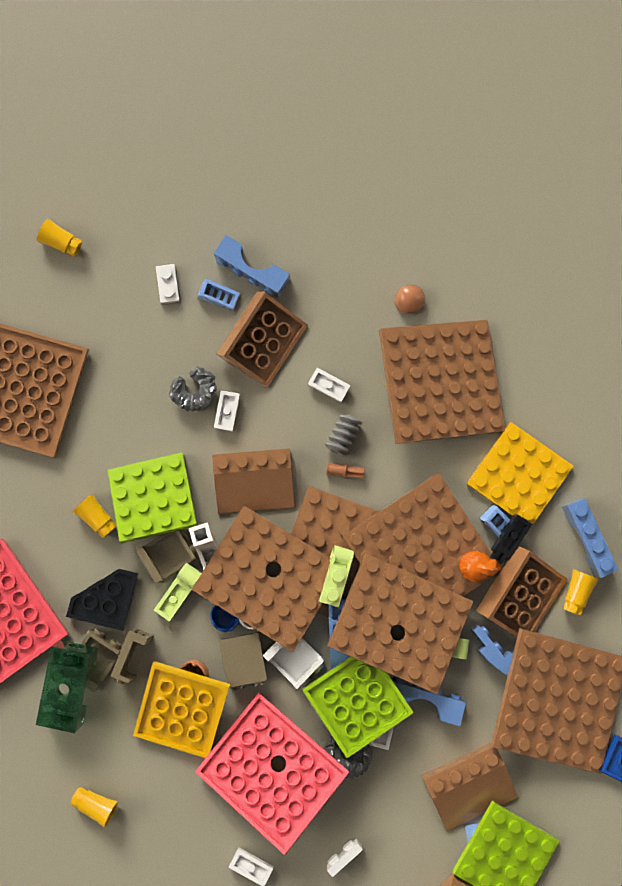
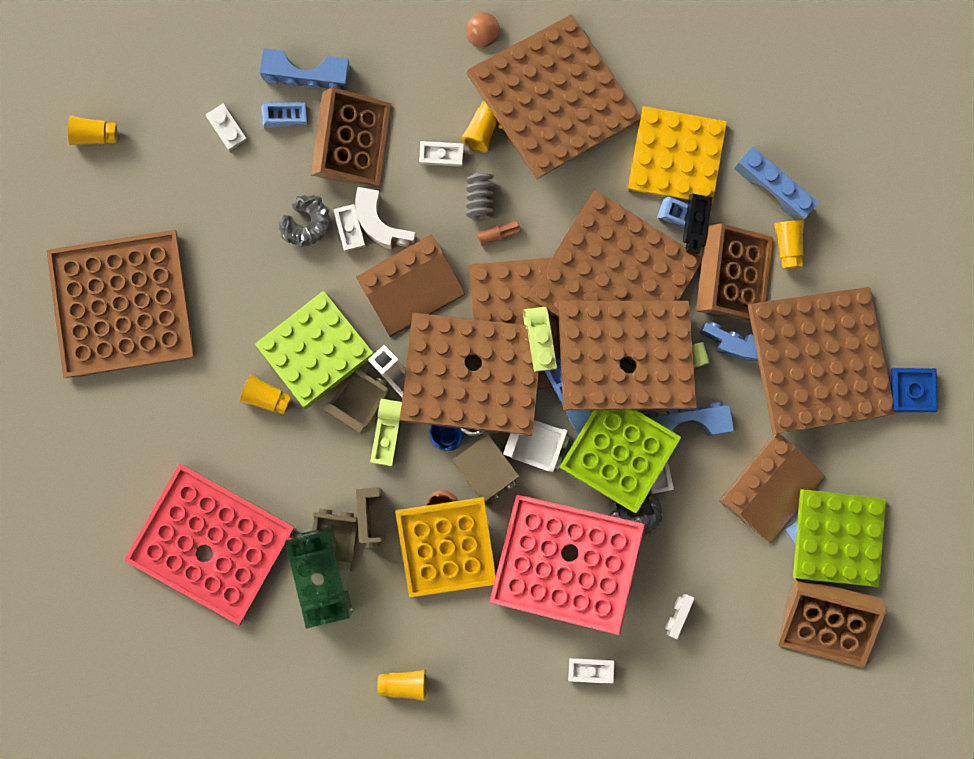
camera: 25 degrees left, 0 degrees up
(105, 601) = (317, 476): black plate -> none
(246, 407) = (367, 213): none -> white arch
(369, 380) = (480, 129): none -> yellow plant
(478, 566) = (677, 263): orange hair -> none

